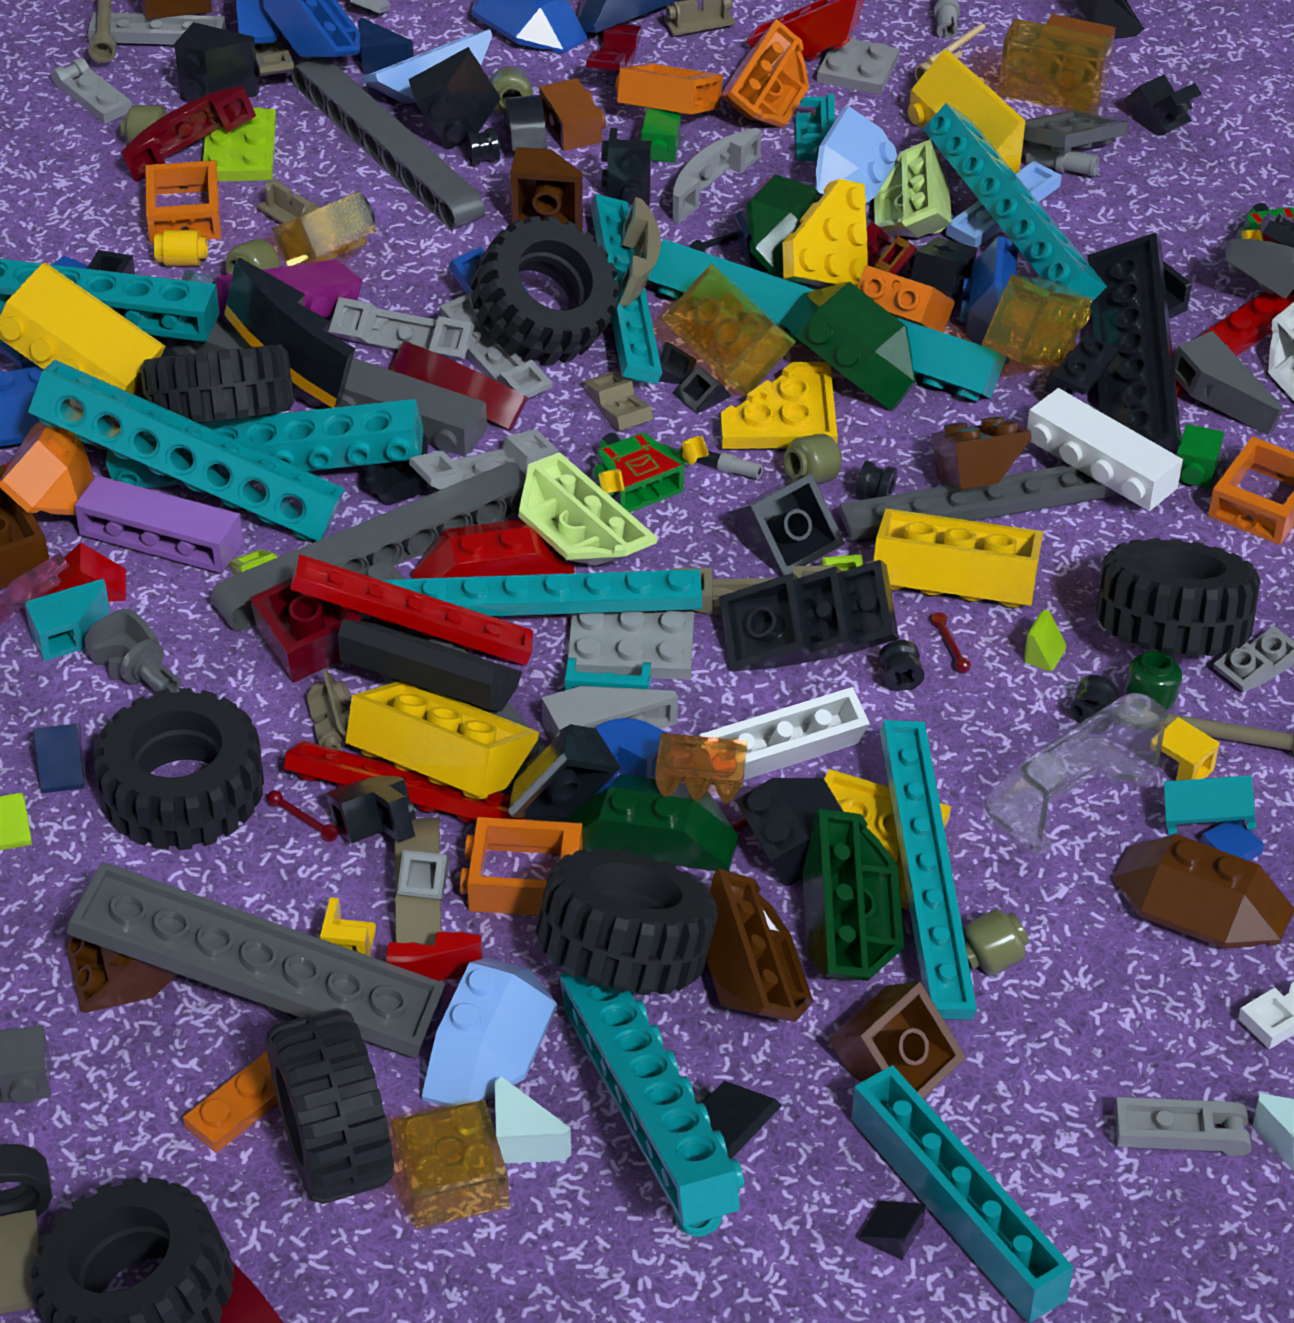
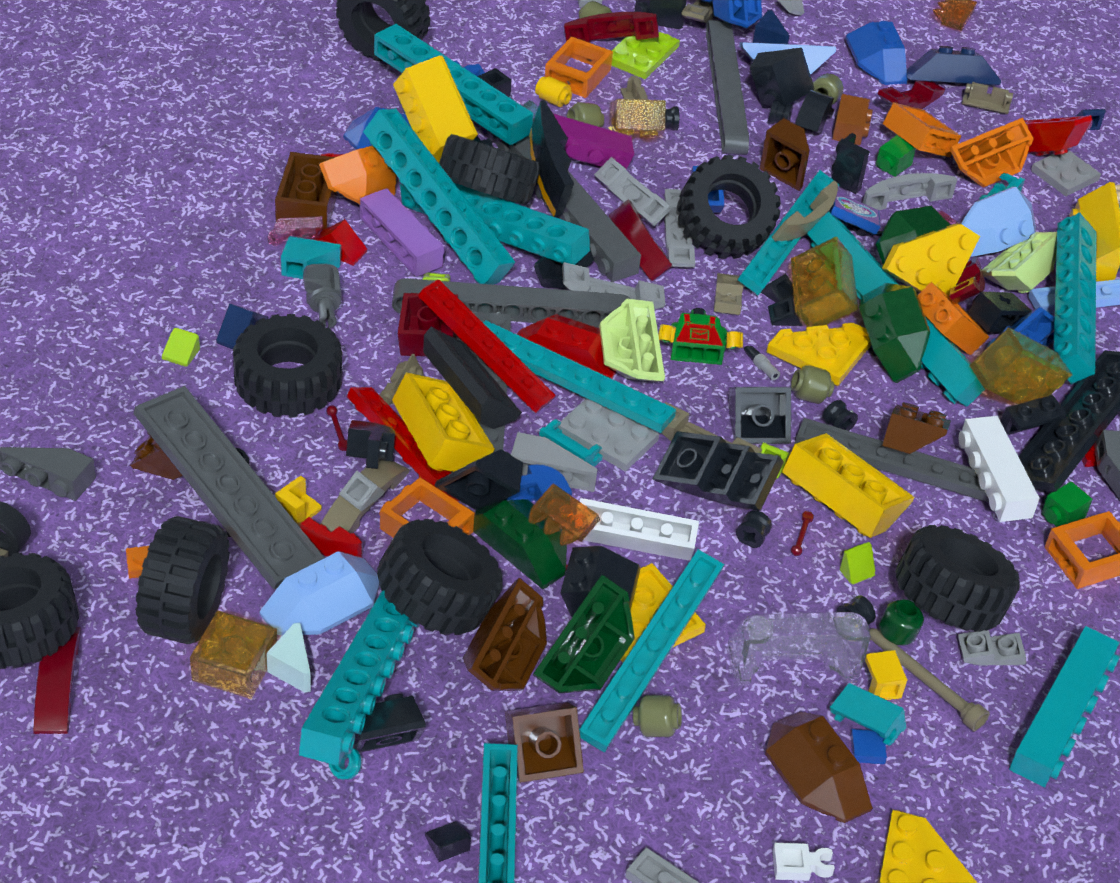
camera: 30 degrees right, 0 degrees up
(689, 228) = (856, 213): none -> tile

